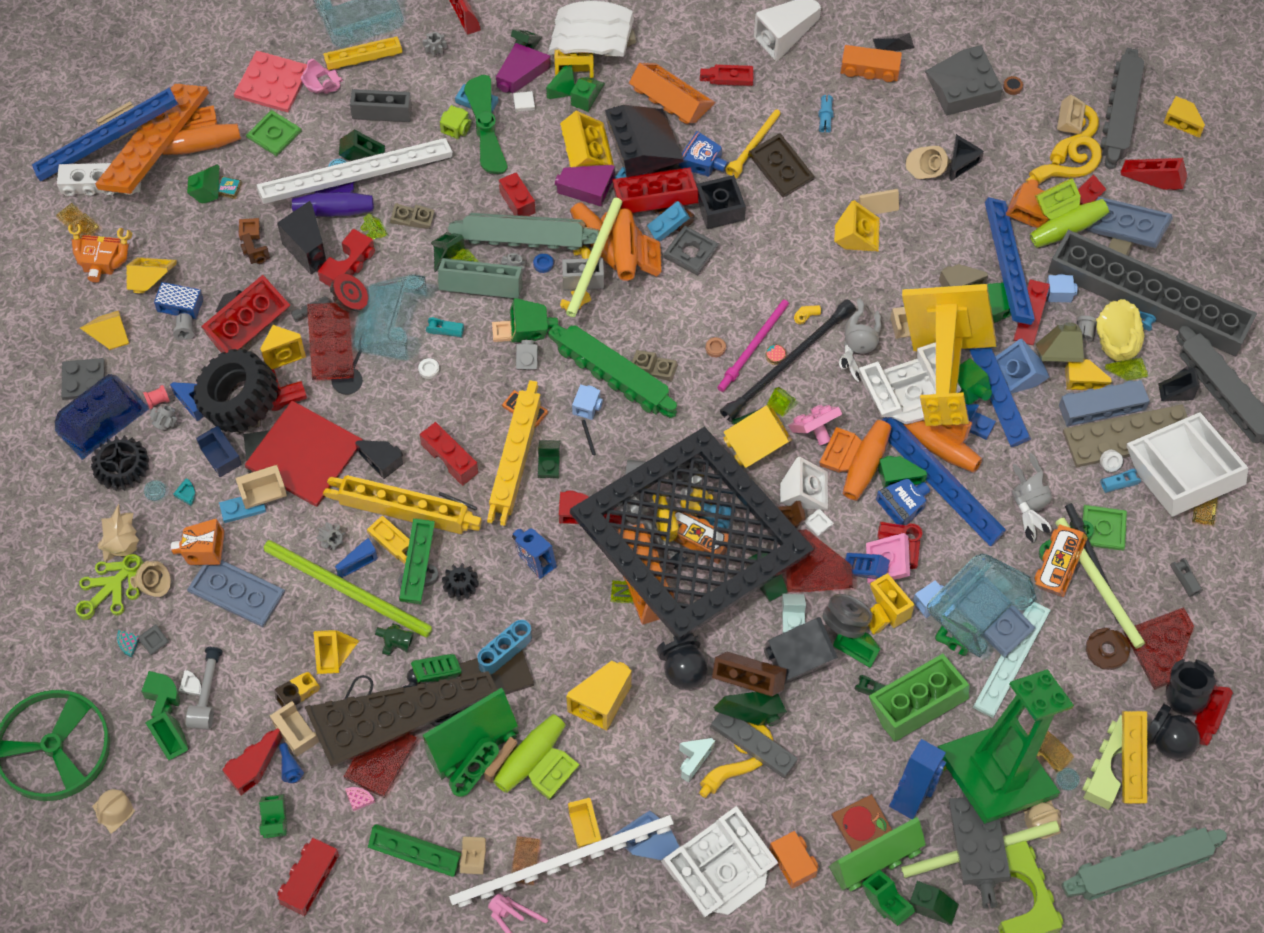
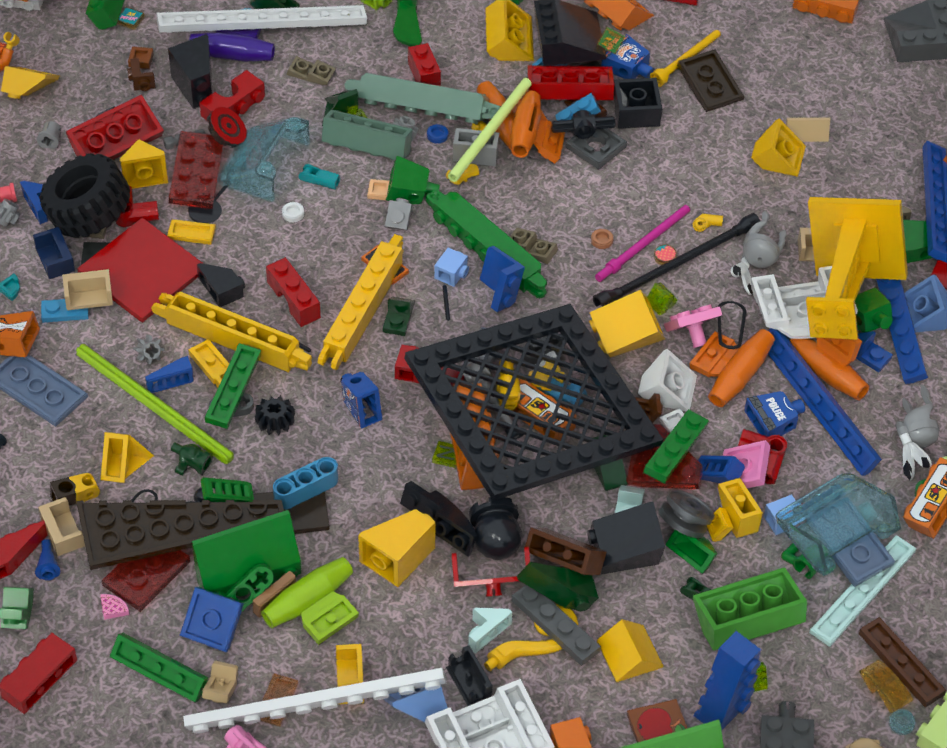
camera: 10 degrees right, 10 degrees down
(178, 300) = (50, 107): blue panel -> none
(340, 405) = (191, 231): none -> yellow tile
(374, 226) = (268, 73): clear neon green tile -> none
(451, 796) = (211, 619): none -> blue tile
(586, 183) = (499, 66): magenta slope -> none
(636, 405) = (503, 276): none -> blue bracket
(638, 658) = (449, 520): none -> black slope
(676, 234) = (583, 124): none -> black axle
(684, 141) = (611, 40): none -> clear yellow tile
(689, 712) = (492, 583): none -> red piece
(689, 808) = (469, 676): none -> black hinge
(822, 756) = (628, 650): none -> yellow slope
(825, 551) = (676, 446): none -> green plate
(826, 113) = (768, 41): dark azure pin -> none
(859, 418) = (741, 330): none -> black piece
(897, 468) = (773, 380): green slope -> none
(927, 162) = (868, 99): tan piece -> none
(963, 157) = (909, 99): black slope -> none
(1000, 764) = (825, 691): green piece -> none
(1073, 735) = (902, 662): none -> reddish brown plate

